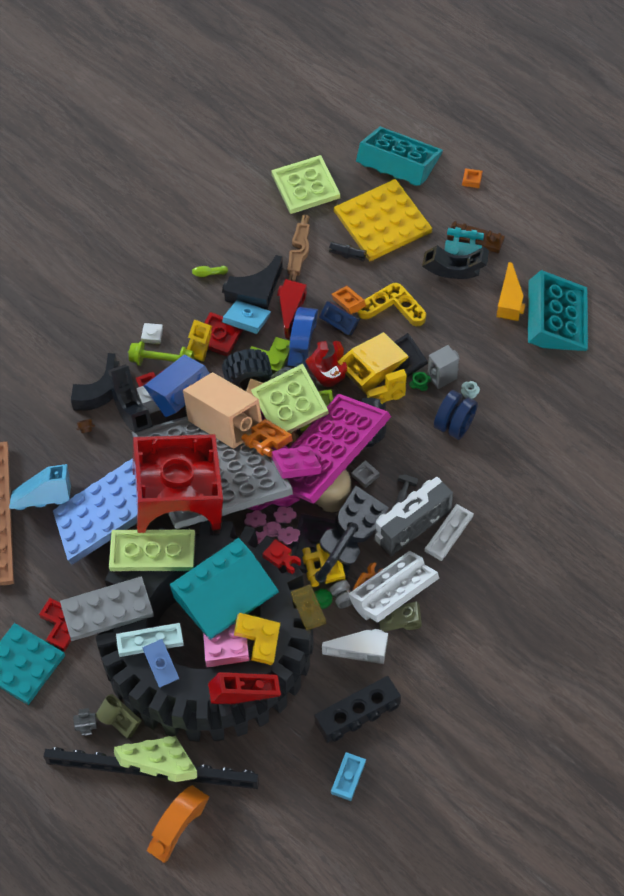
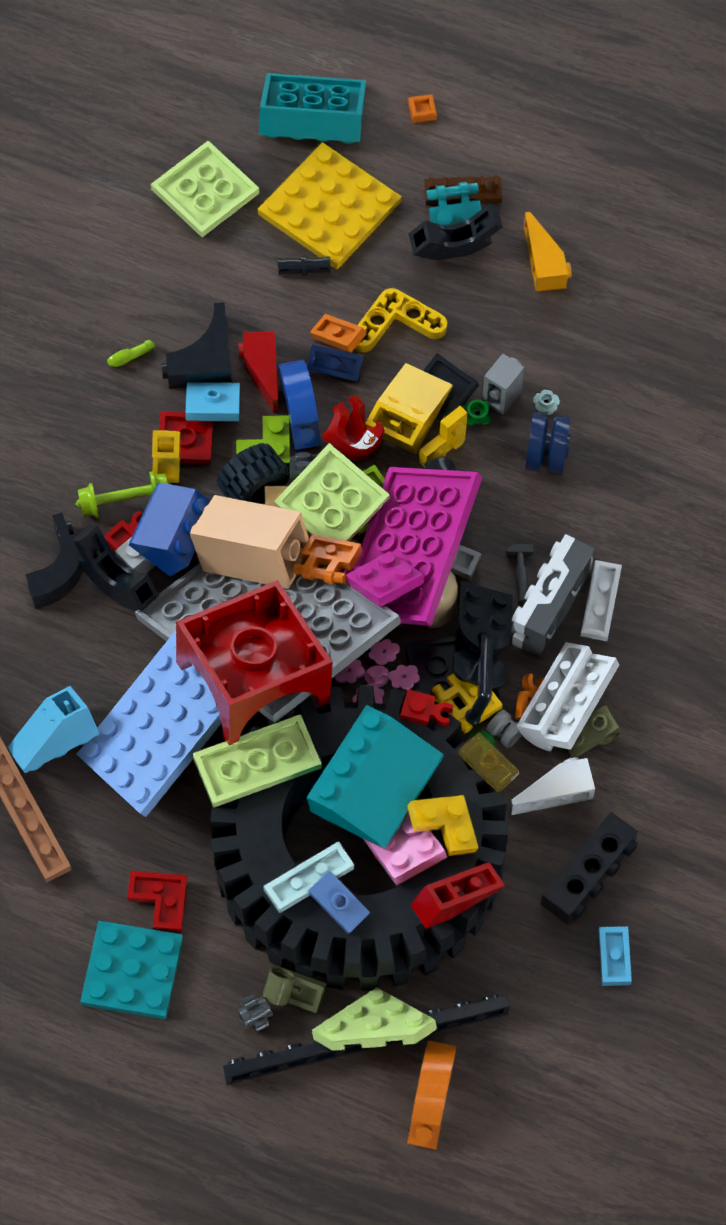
camera: 25 degrees left, 5 degrees up
(85, 425) = (65, 625): reddish brown plate -> none
(106, 608) = (232, 857): light grey plate -> none
(152, 333) = (93, 467): white plate -> none
(300, 241) = (235, 272): medium nougat piece -> none
(557, 313) = (613, 261): teal slope -> none

